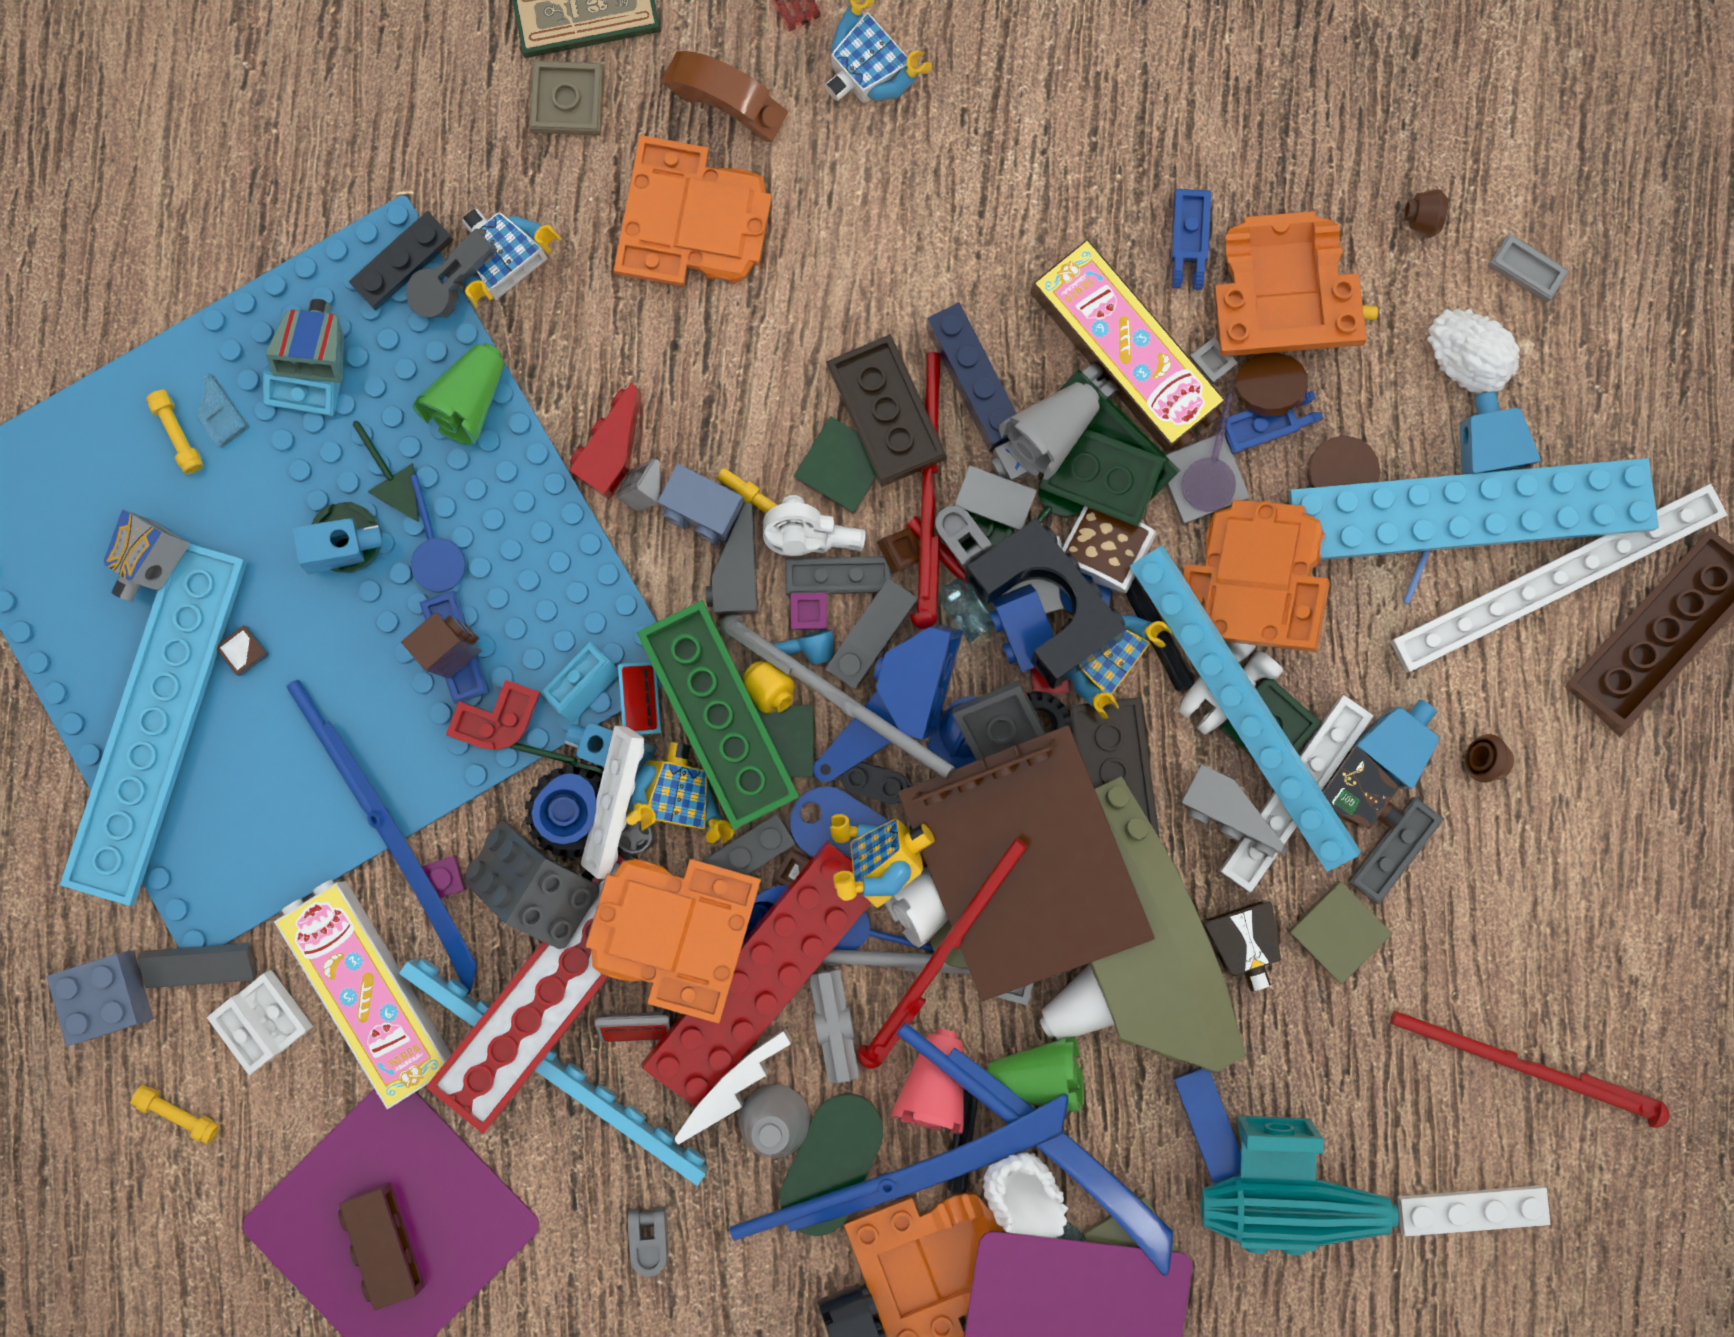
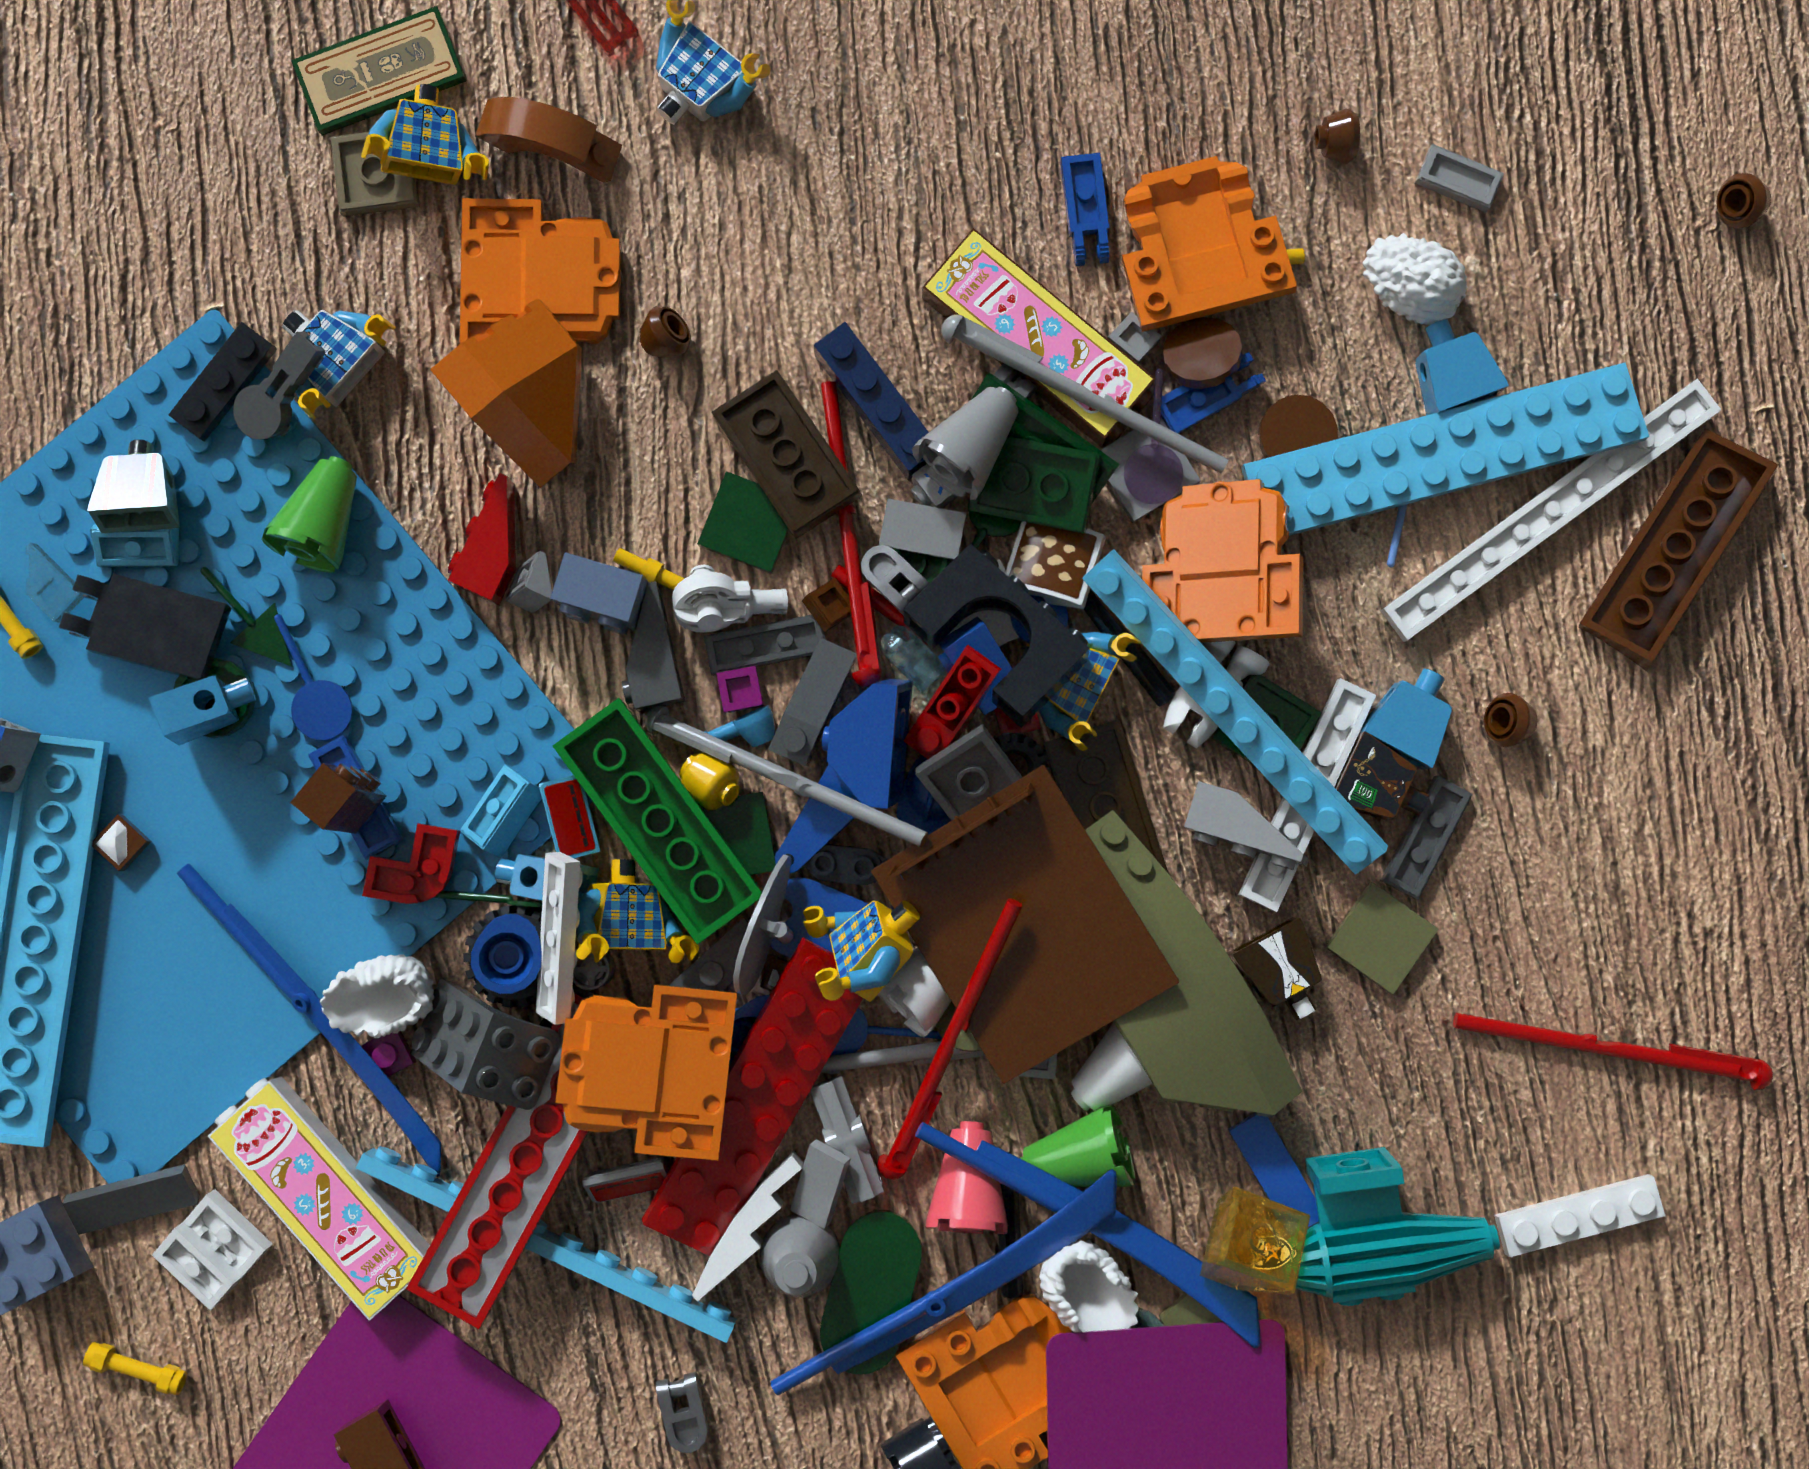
camera: 15 degrees left, 0 degrees up
(301, 464) = (150, 625): none -> black tile
(445, 826) = (379, 996): none -> white piece
(616, 79) = (424, 141): none -> torso
(663, 312) = (521, 388): none -> orange panel
(793, 826) = (763, 929): none -> light grey shield
(797, 284) = (664, 333): none -> reddish brown cone
(804, 1060) = (820, 1183): none -> light grey tile
(996, 657) = (953, 703): none -> red slope
(1115, 367) = (1029, 363): none -> light grey bar
(1180, 1183) = (1255, 1243): none -> clear yellow slope

